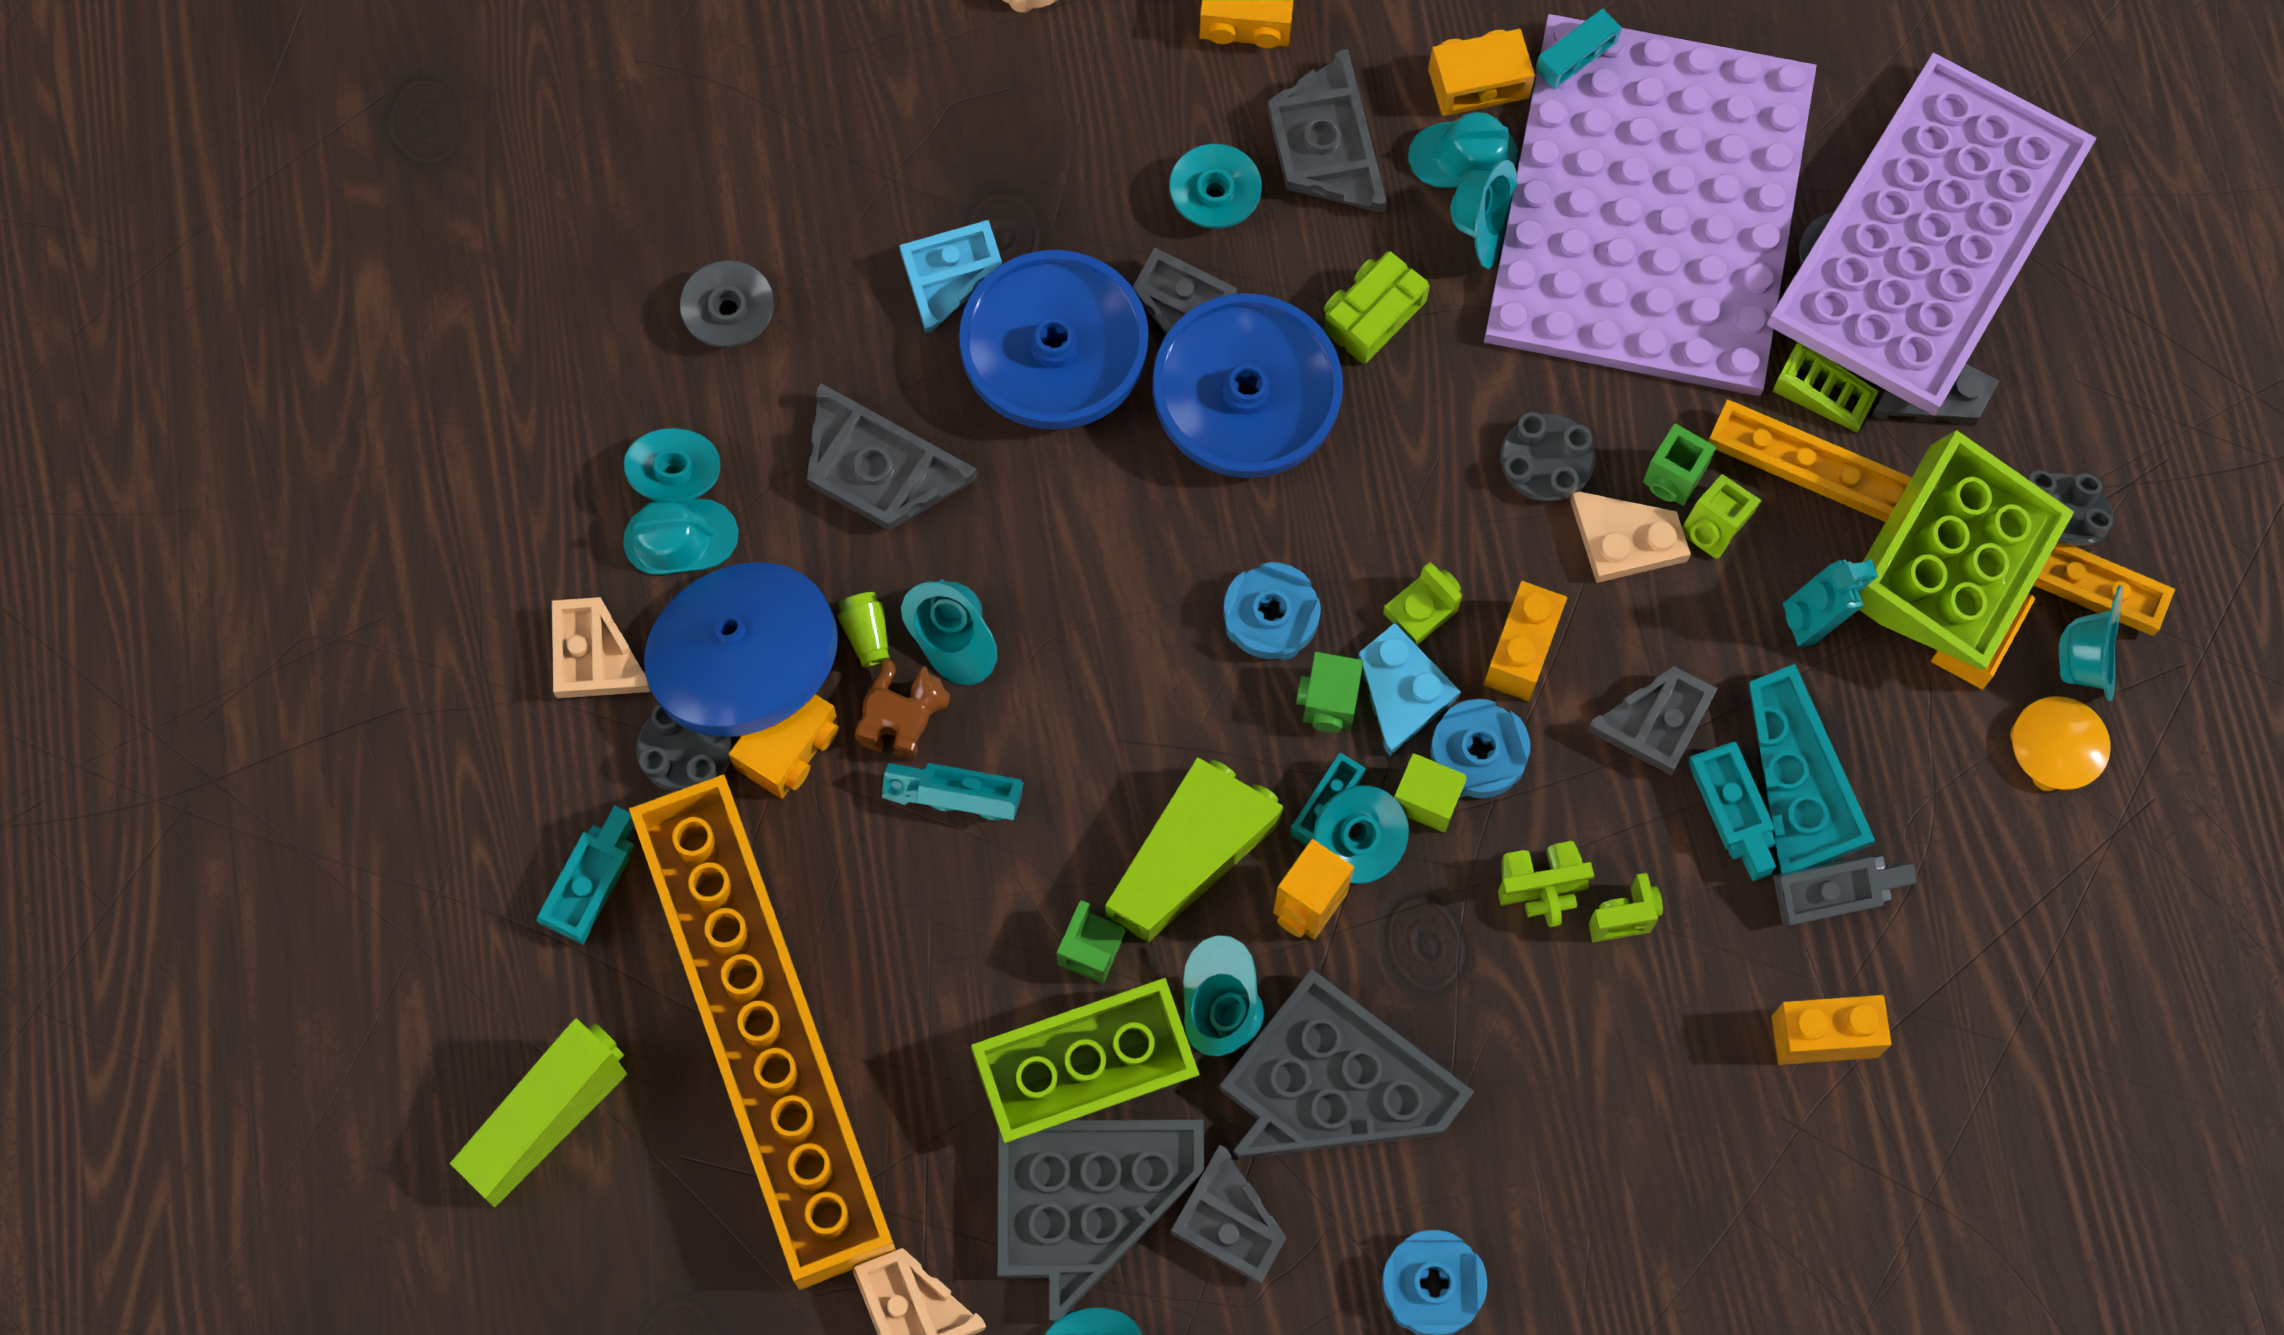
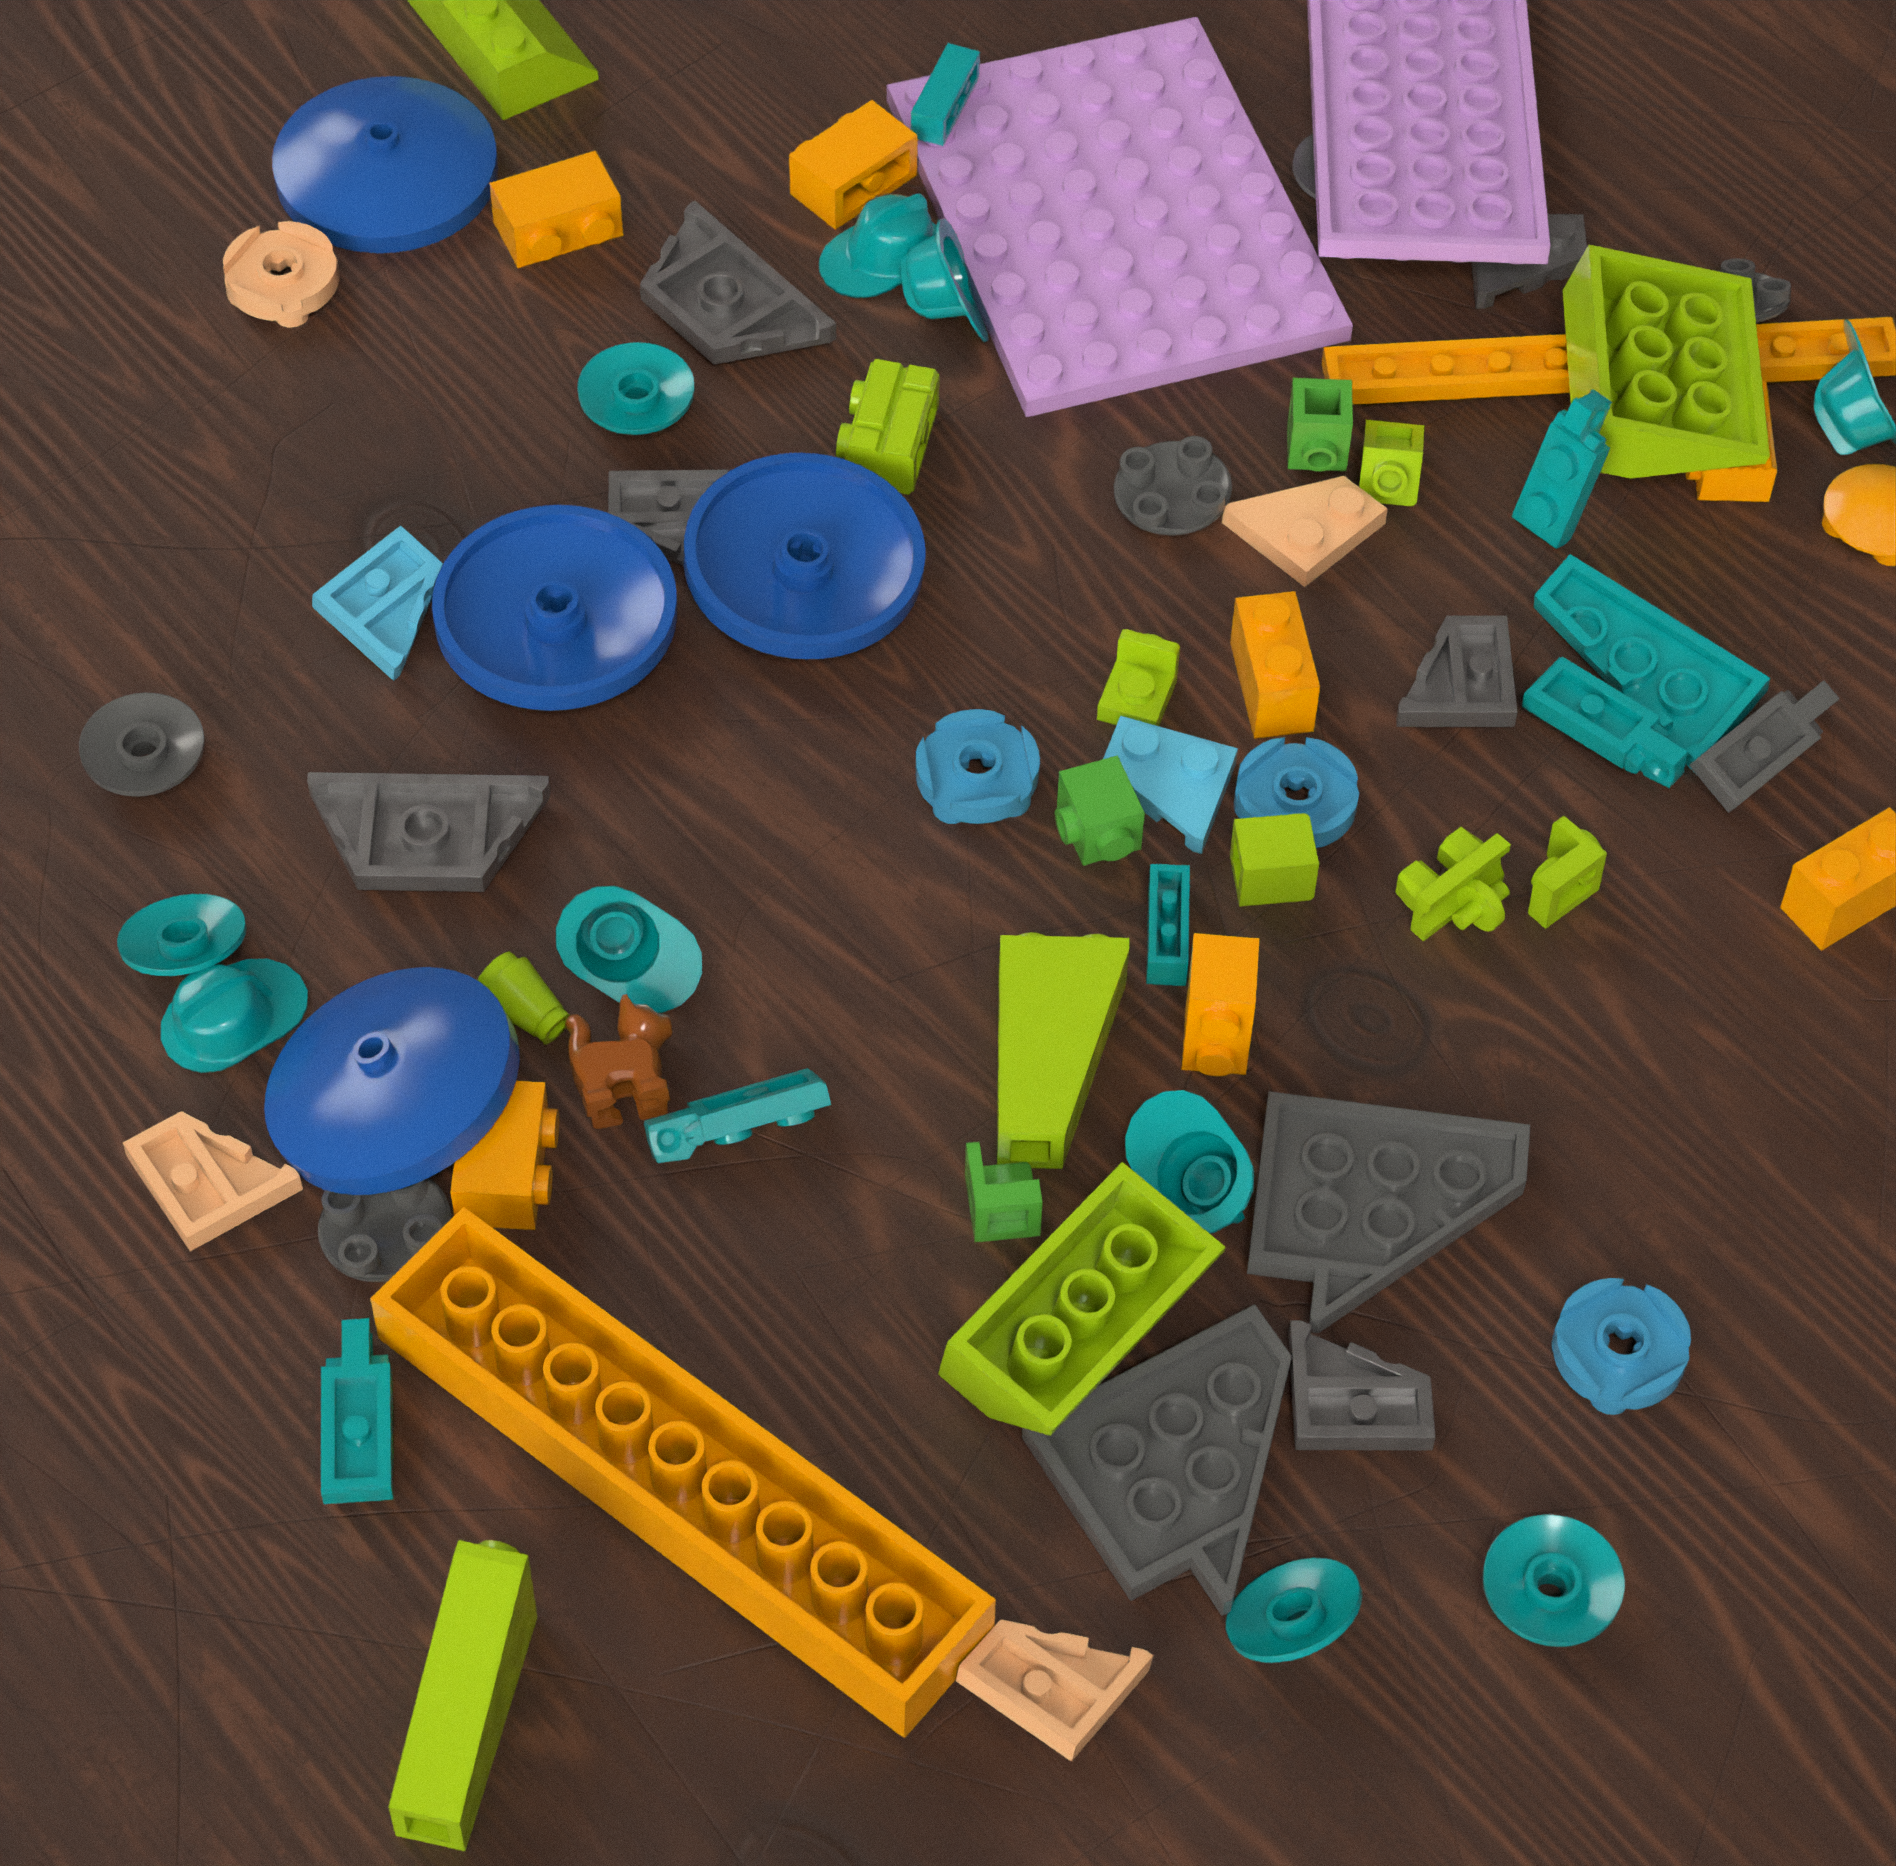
camera: 30 degrees left, 15 degrees down
(1381, 836) = (1231, 907): teal dish -> none
(1805, 395) = (1384, 301): lime slope -> none

